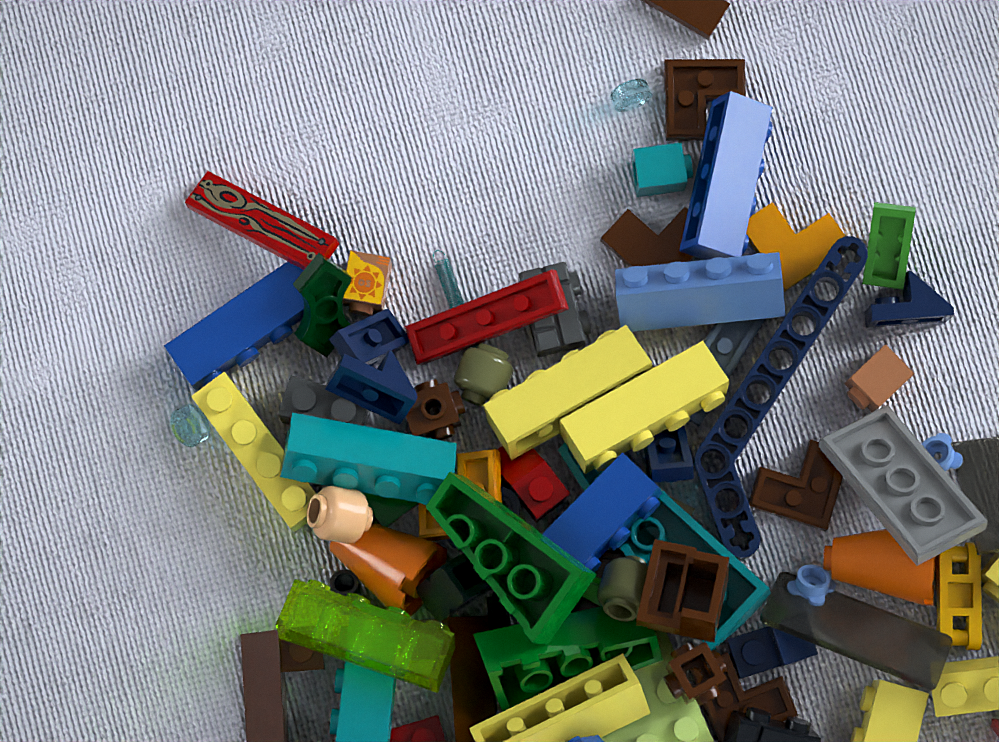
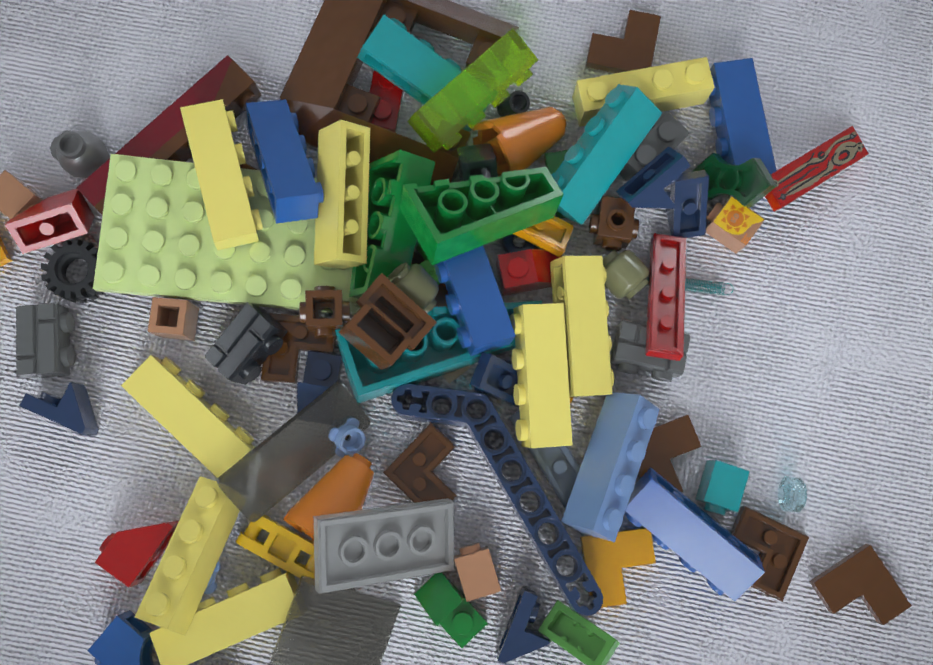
camera: 115 degrees right, 0 degrees up
(190, 425) = (683, 53): clear light blue tile -> none
(213, 487) = (632, 51): none -> reddish brown tile
(339, 514) = (570, 113): light nougat head -> none
(928, 389) = (450, 609): none -> green slope
(942, 444) = (402, 596): light blue plate -> none

